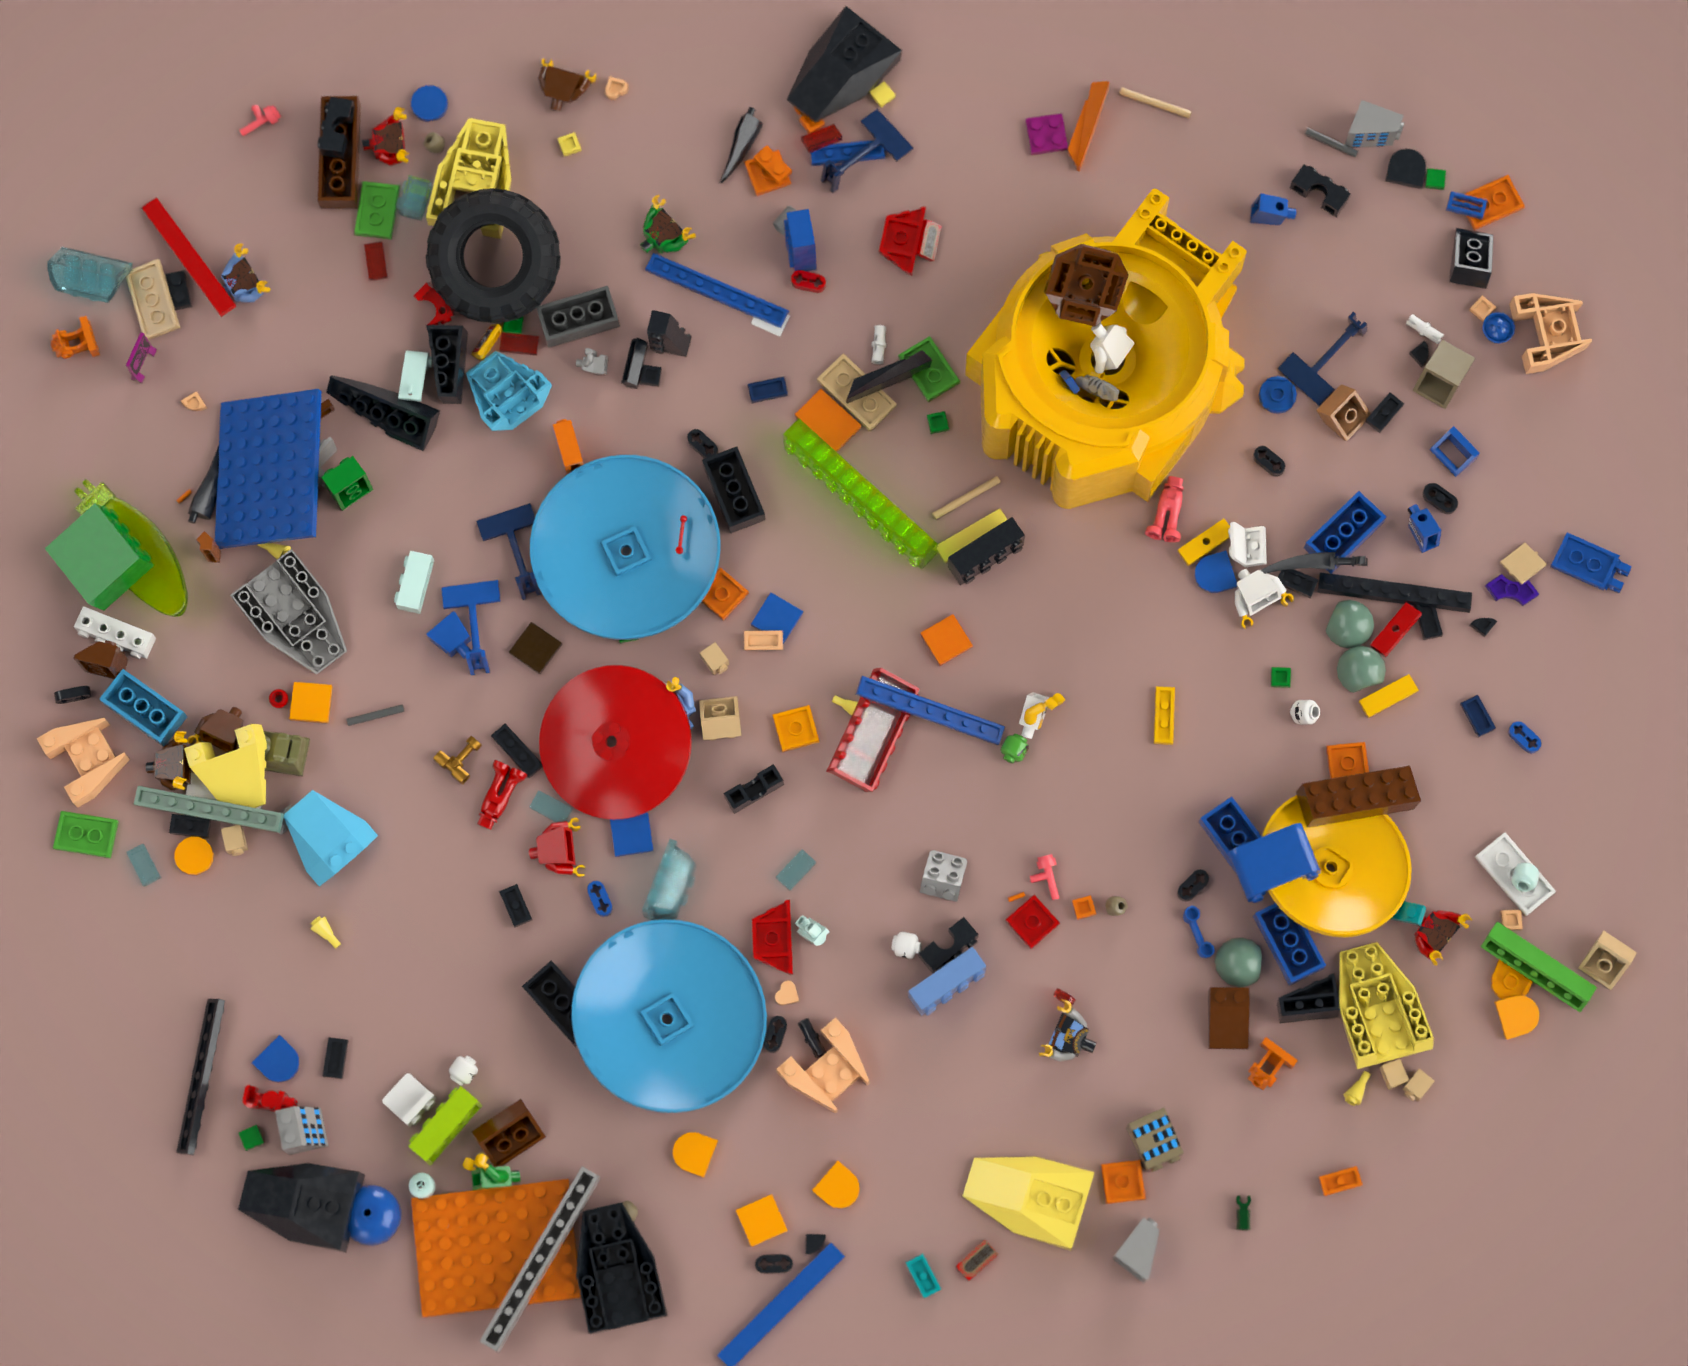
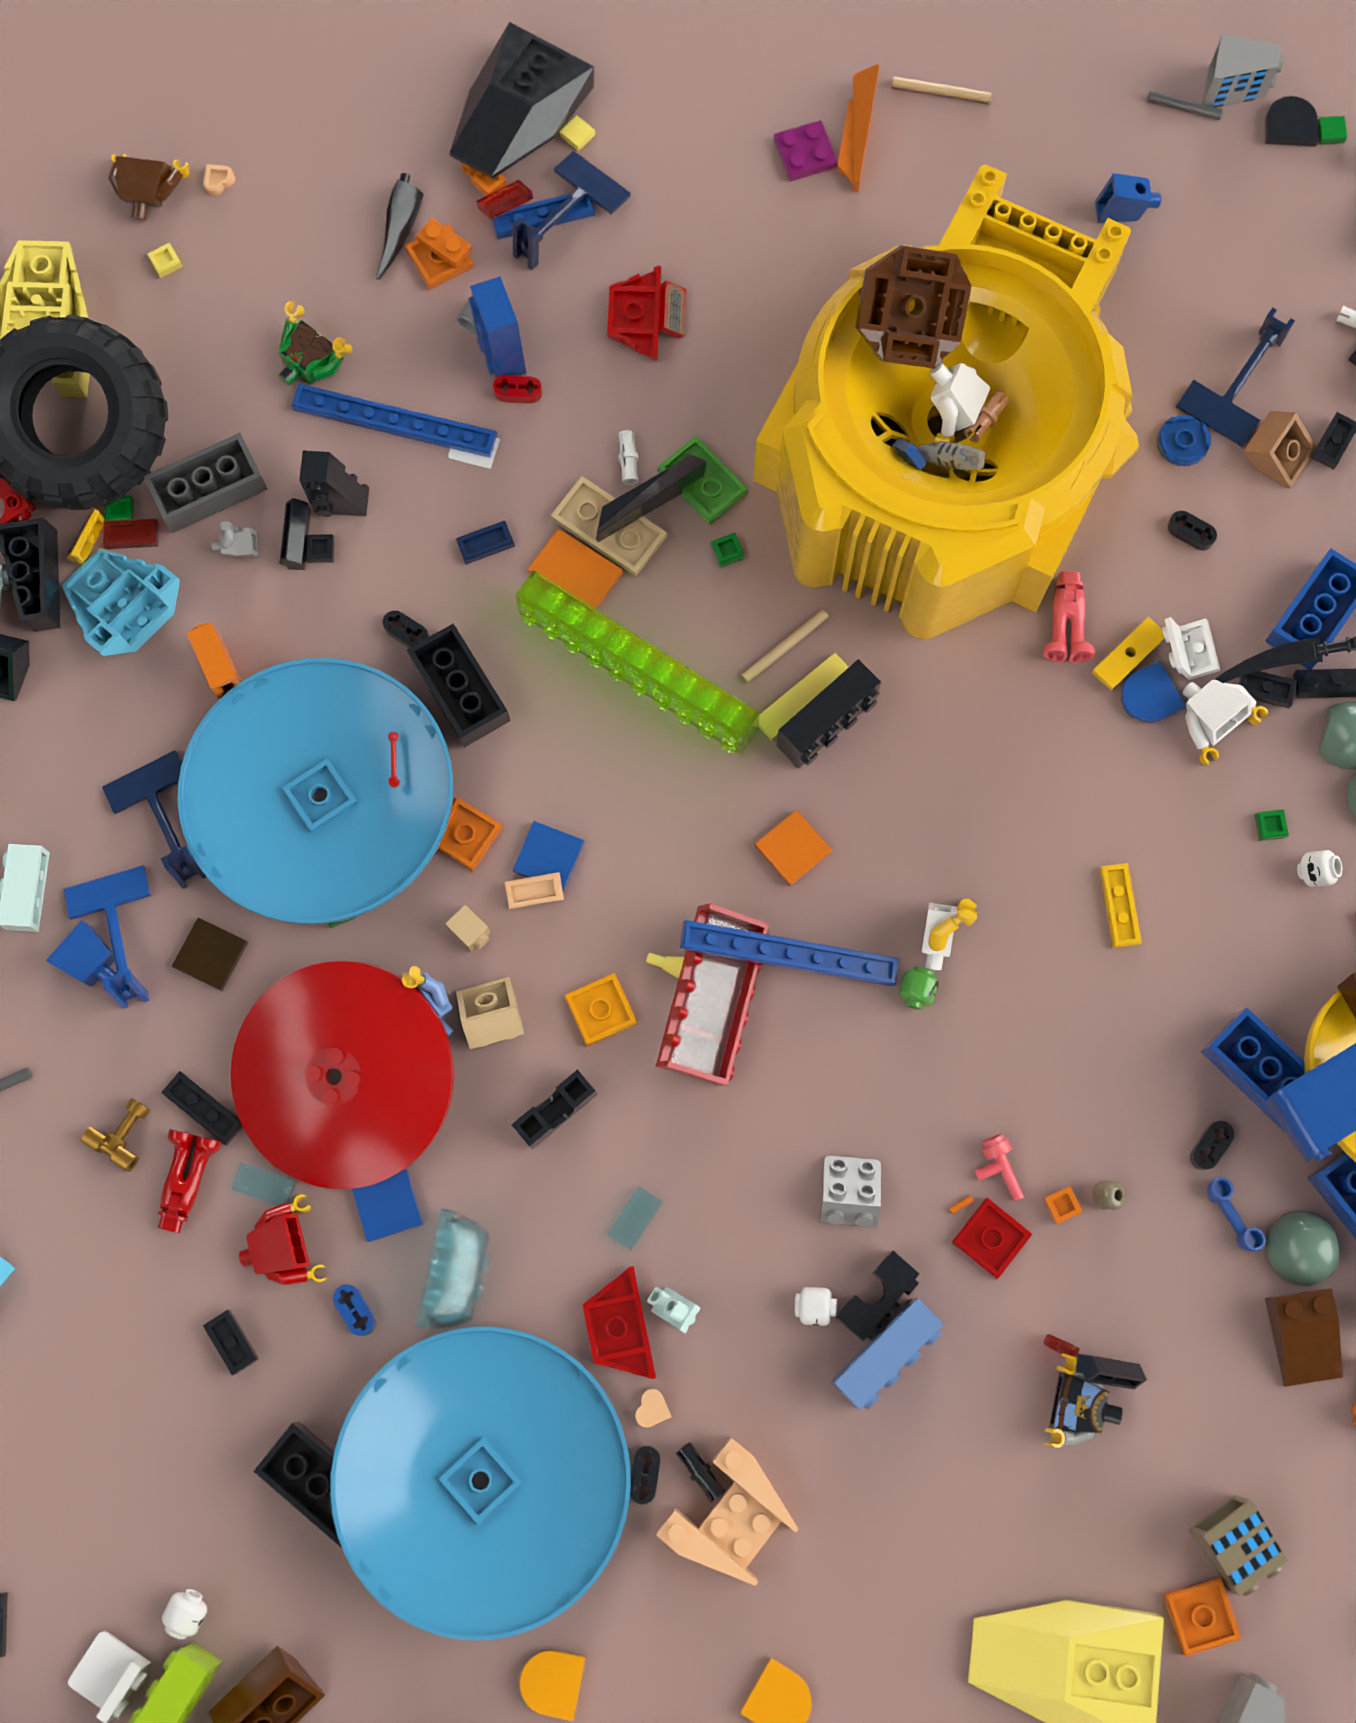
camera: 10 degrees left, 0 degrees up
(1093, 1014) = (1110, 1371): none -> black piece
(1128, 363) = (987, 416): none -> nougat pin
(1308, 180) = (1202, 166): black arch -> none

